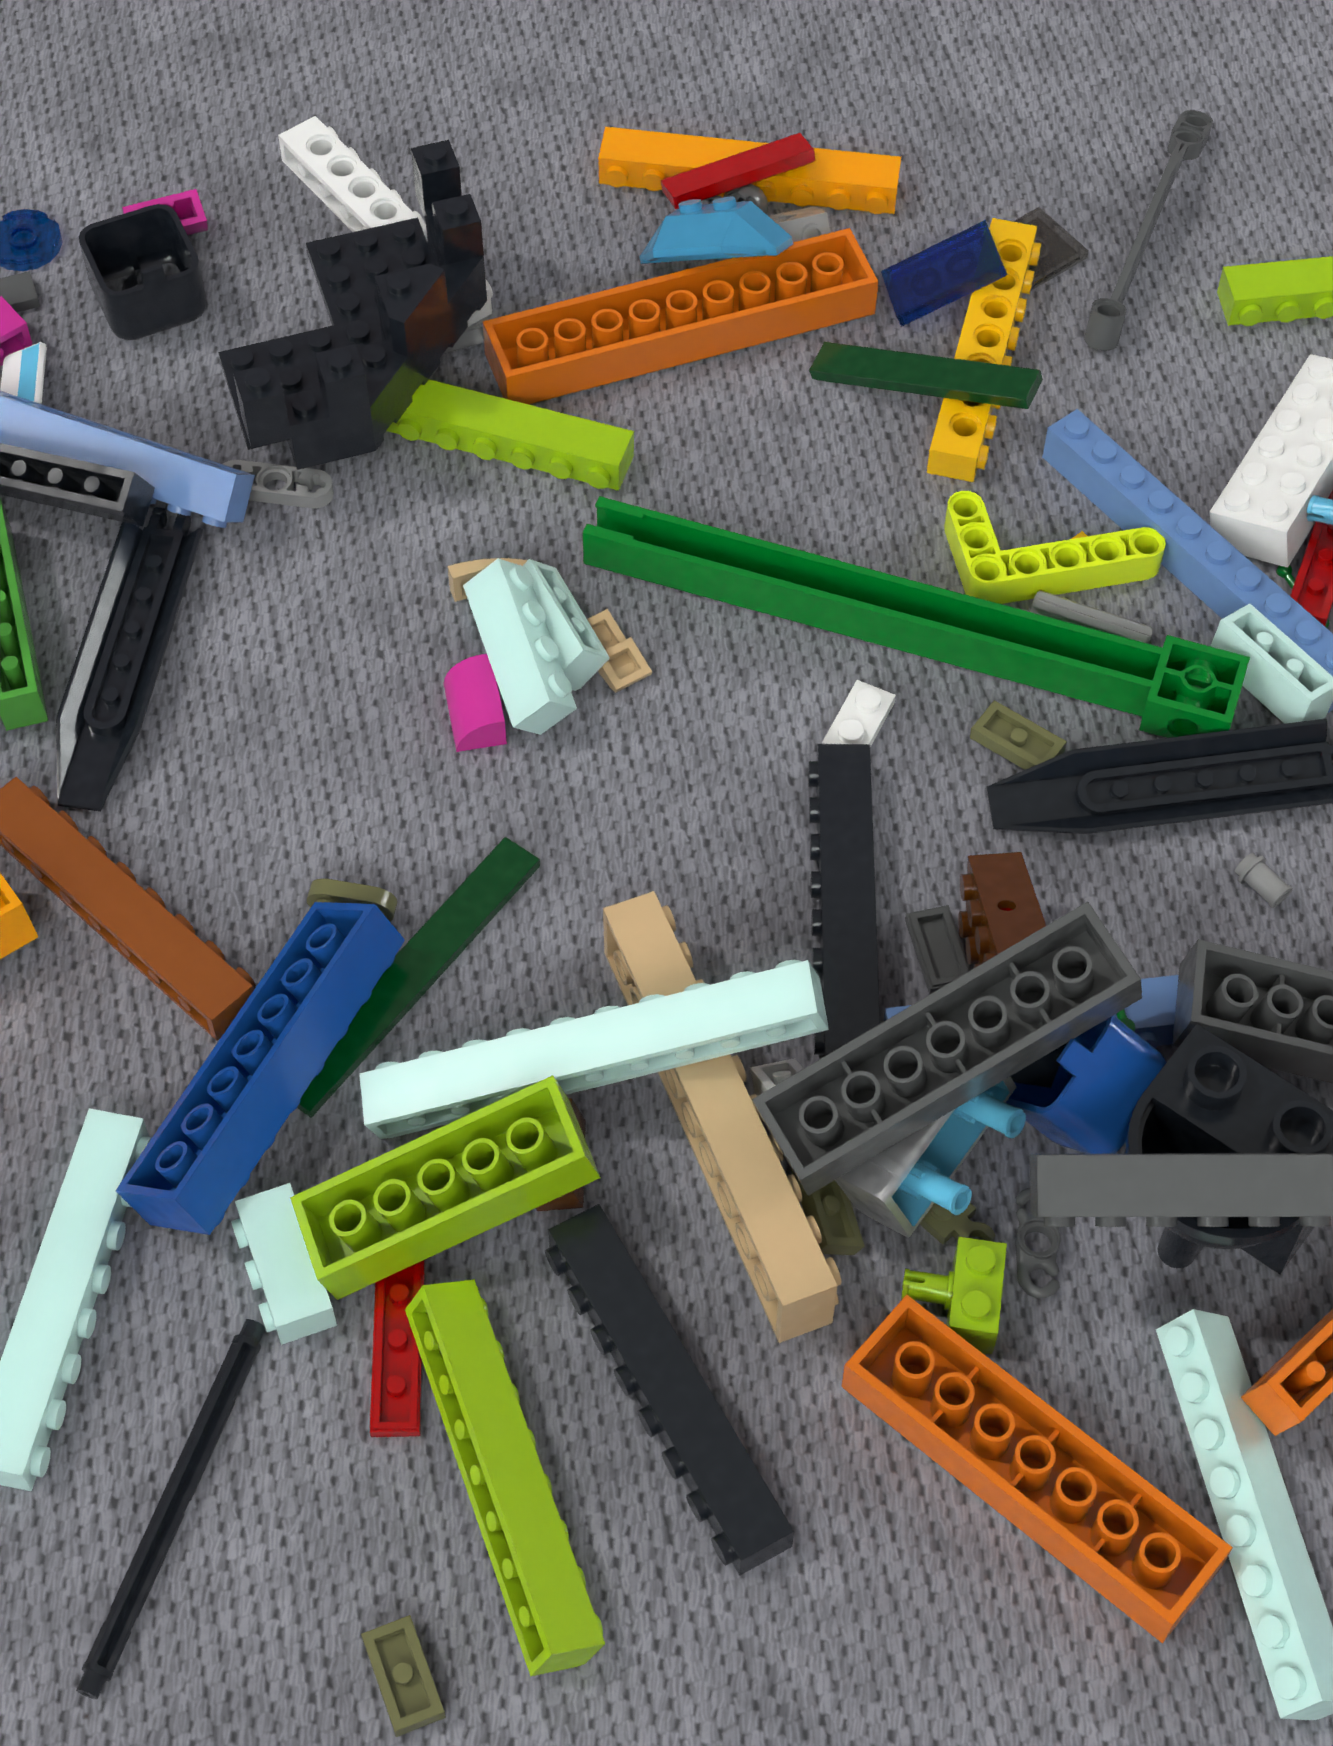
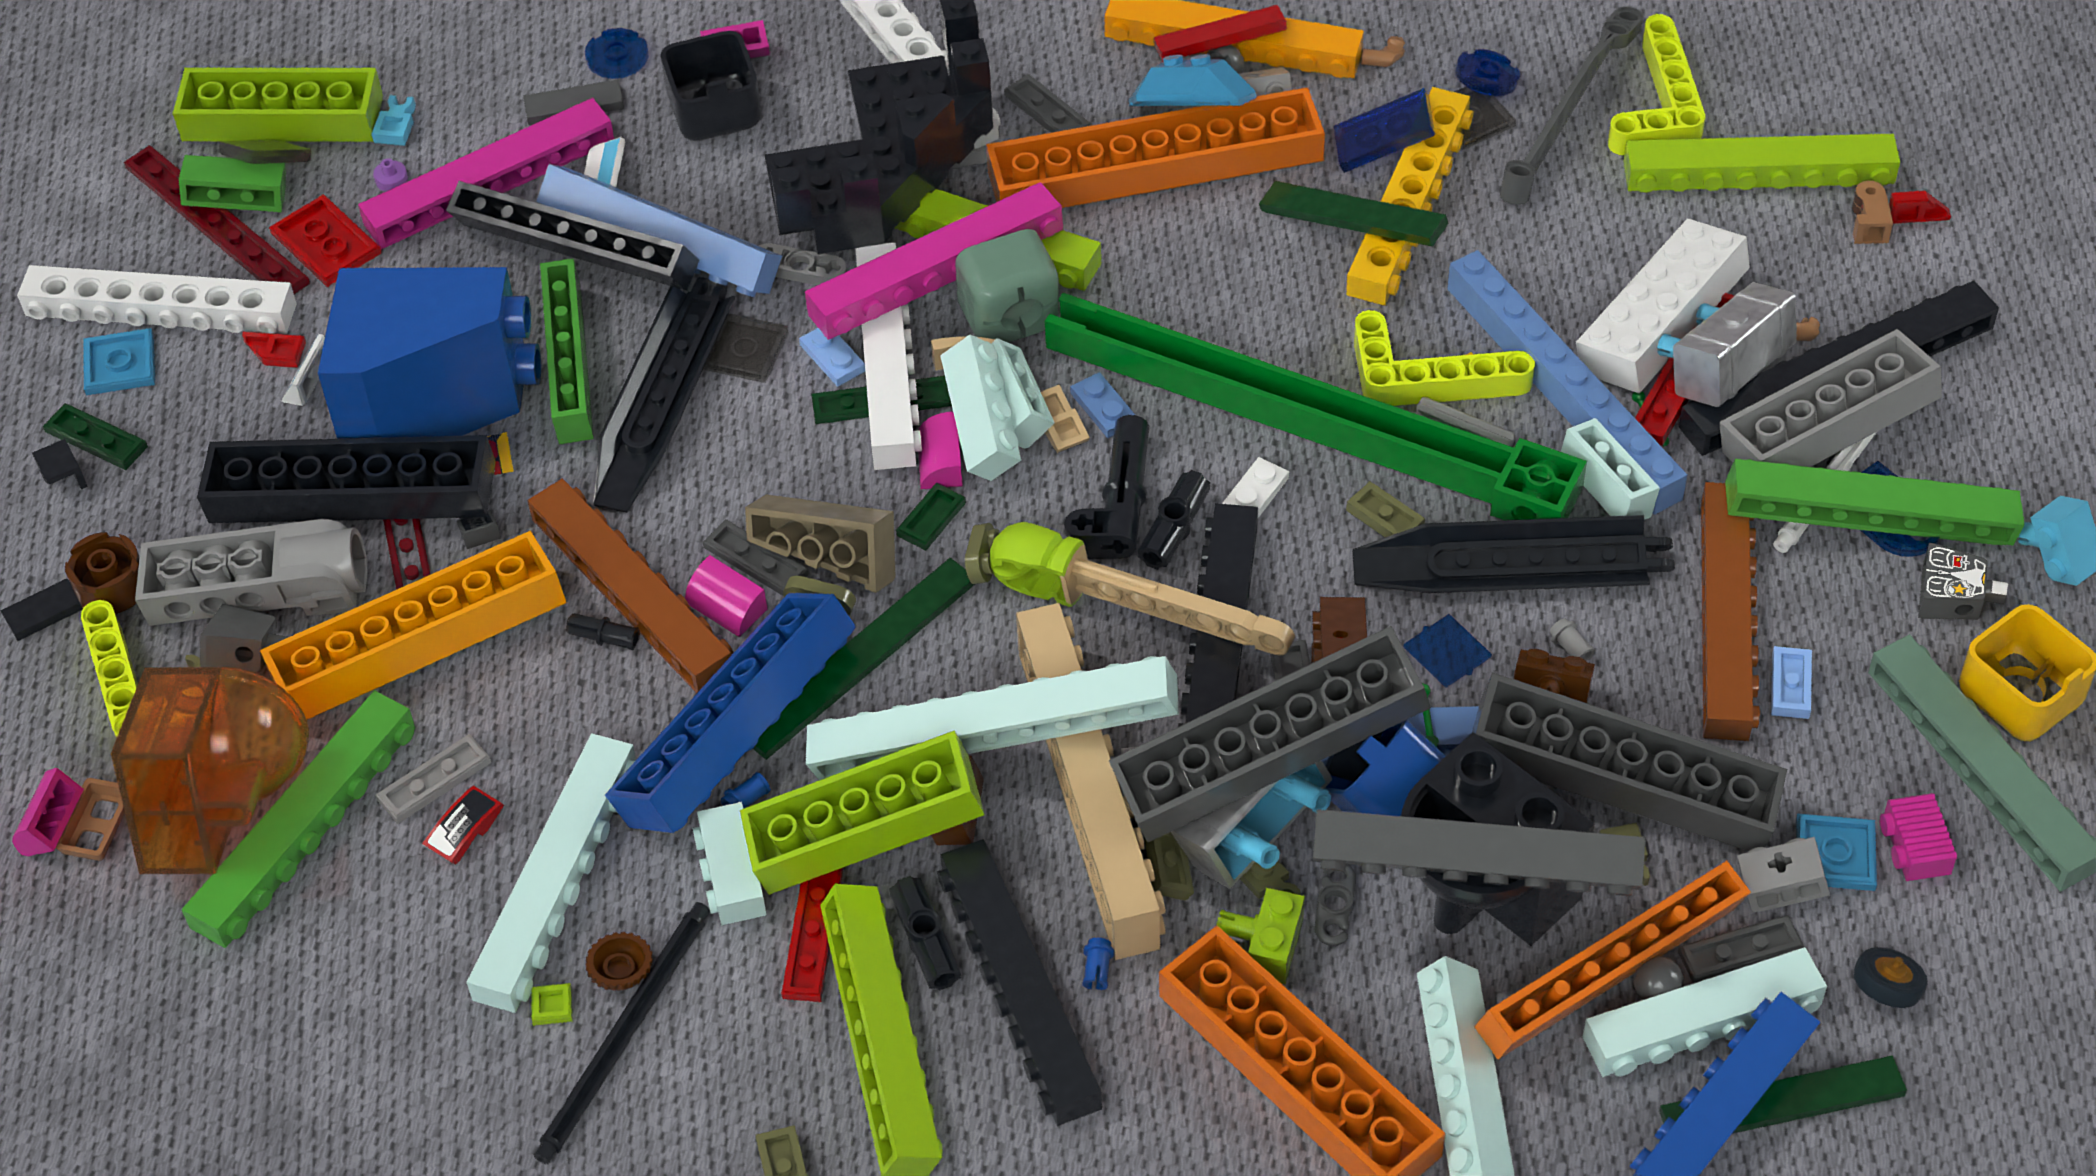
camera: 10 degrees right, 5 degrees down
(77, 1475) = (551, 1004): none -> lime tile
(87, 968) = (603, 631): none -> black axle
(157, 1411) = (618, 961): none -> reddish brown hat
(224, 591) = (747, 348): none -> clear smoke tile
(235, 910) = (725, 596): none -> dark pink brick
(264, 855) = (765, 566): none -> dark grey tile
(292, 1165) = (747, 792): none -> blue pin
(328, 591) = (832, 356): none -> light blue plate
(353, 823) = (837, 537): none -> dark tan wedge
(395, 591) = (888, 382): none -> white brick
(395, 643) = (853, 402): none -> dark green tile
(439, 469) = (925, 262): none -> dark pink brick
(474, 786) = (930, 516): none -> dark green tile
(532, 494) = (989, 283): none -> sand green piece
(541, 270) = (1044, 105): none -> dark grey tile
(544, 829) = (978, 553): none -> olive plate
(551, 1356) = (930, 949): none -> black piece
(627, 840) = (1047, 566): none -> tan piece
(662, 629) = (1100, 402): none -> medium blue plate
(702, 774) = (1118, 522): none -> black piece
(760, 1352) = (1097, 962): none -> blue pin
(764, 784) = (1174, 519): none -> black piece
(928, 185) = (1386, 56): none -> medium nougat arm
(1047, 197) = (1487, 72): none -> clear blue tile
(1120, 901) = (1447, 650): none -> clear blue piece
(1262, 929) = (1560, 675): none -> reddish brown brick
(1274, 224) = (1681, 109): none -> neon yellow beam

